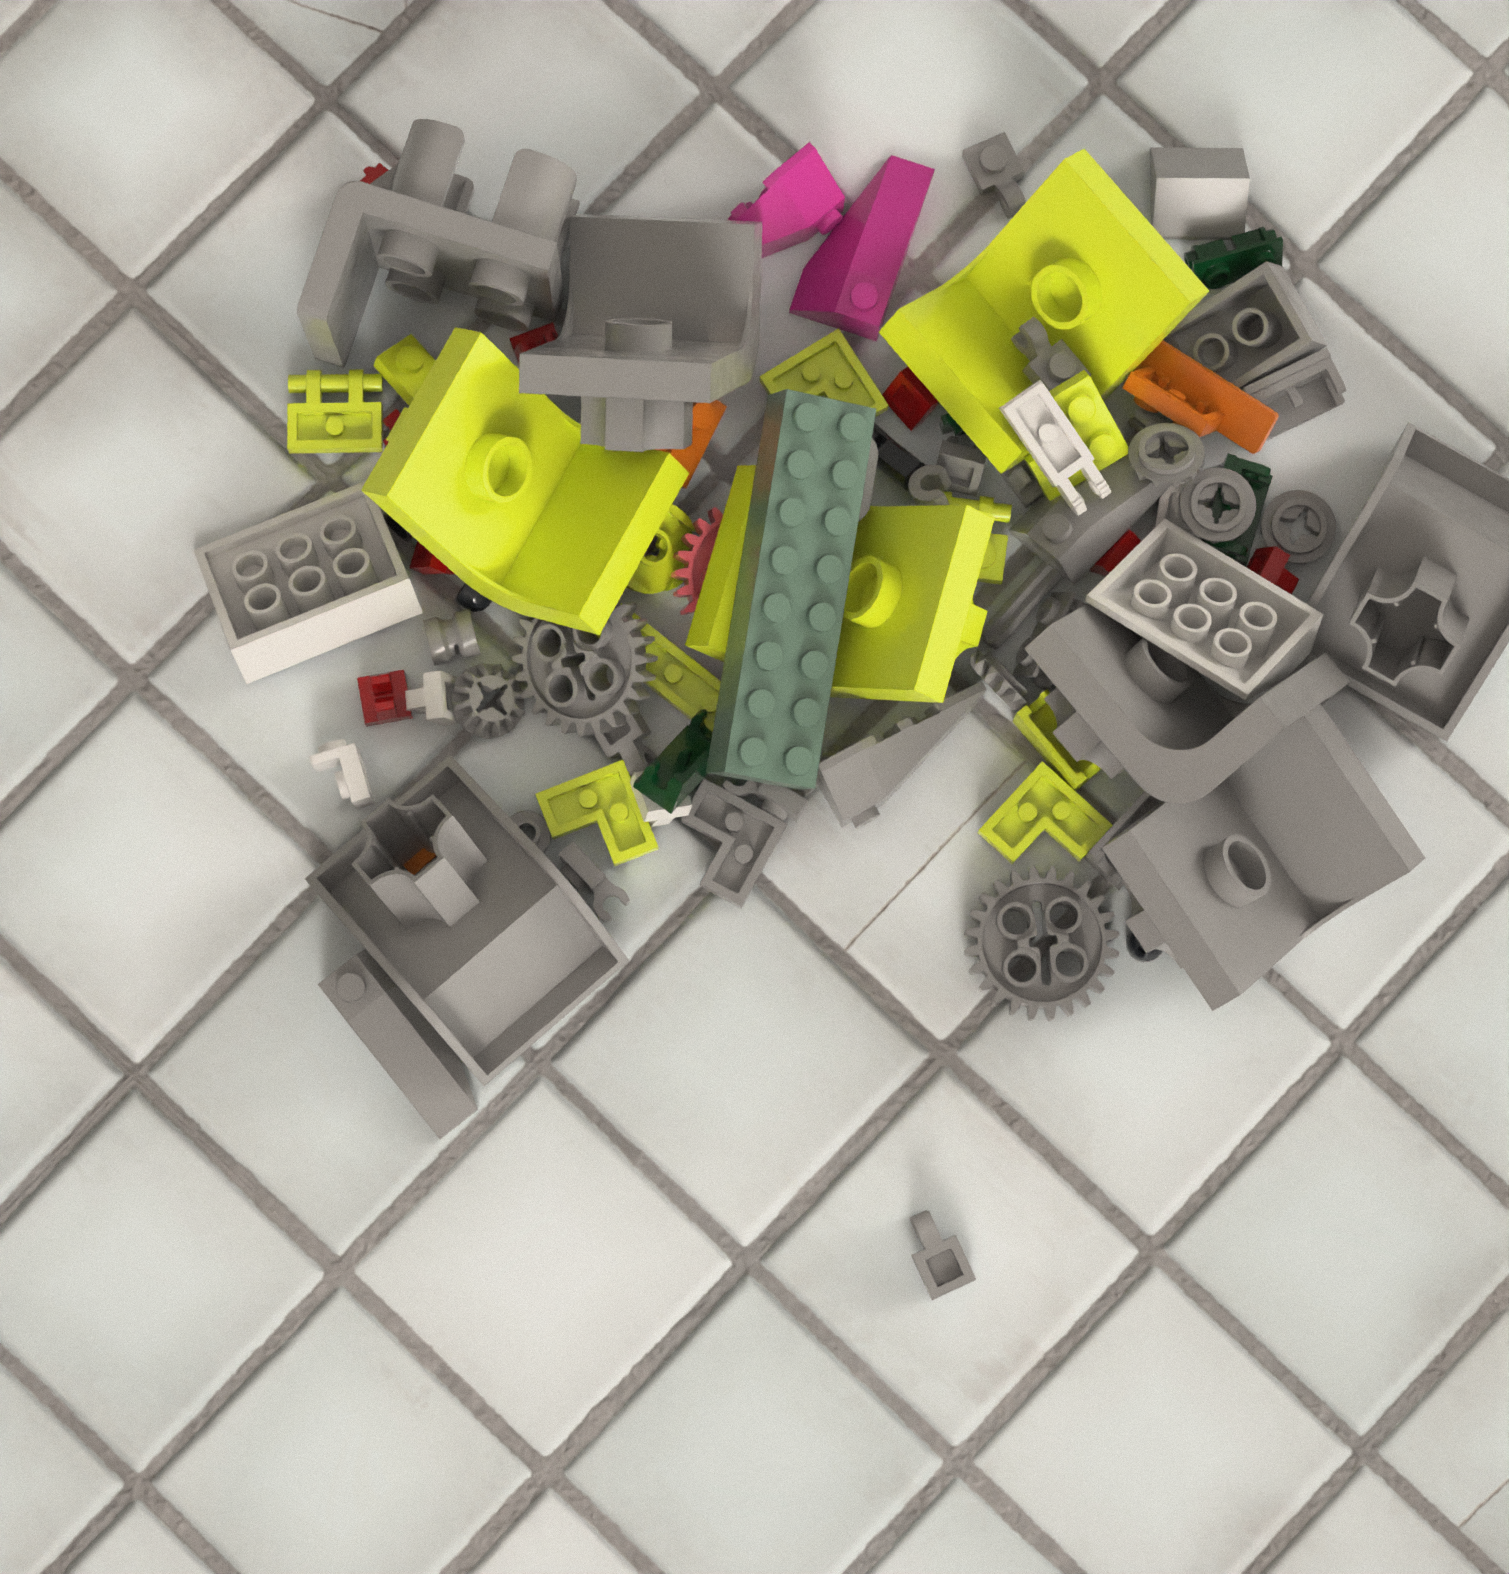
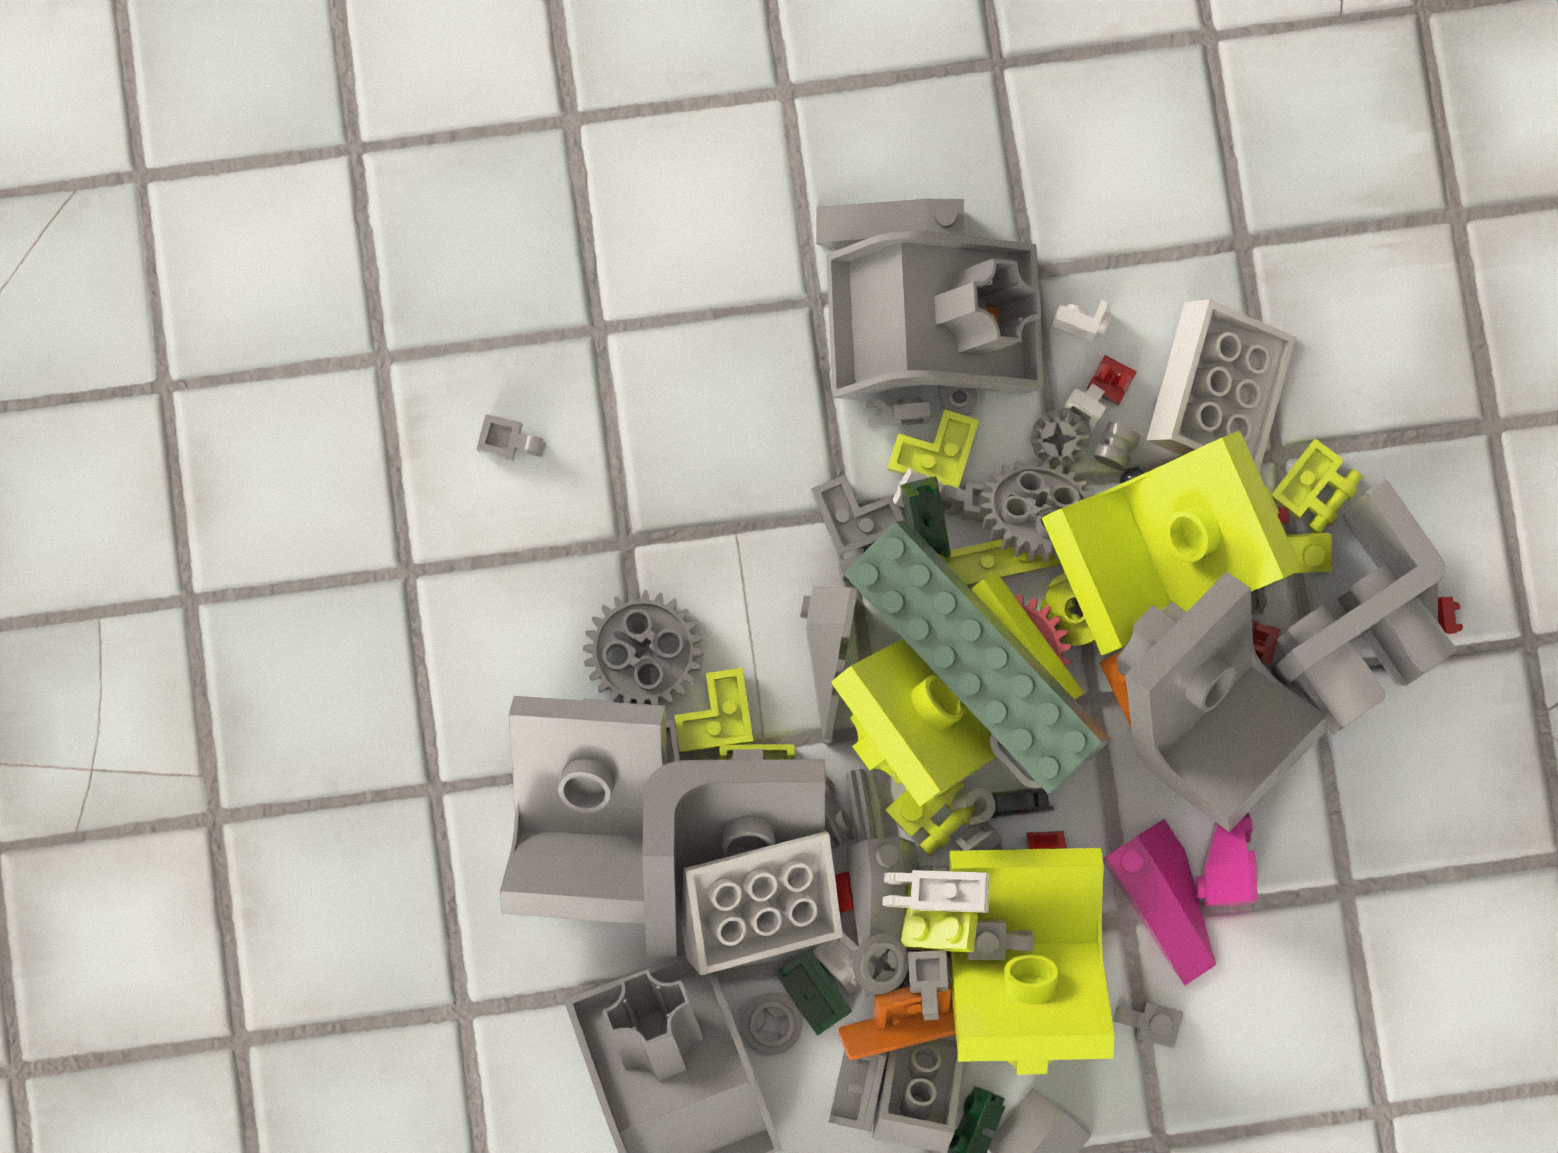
camera: 130 degrees right, 0 degrees up
(826, 370) = (1103, 811): neon yellow plate -> none
(999, 679) = (834, 752): light grey gear -> none
(1139, 400) = (928, 975): none -> light grey plate
(1234, 492) = (823, 955): light grey gear -> none
(1270, 565) = (757, 976): red tile -> none

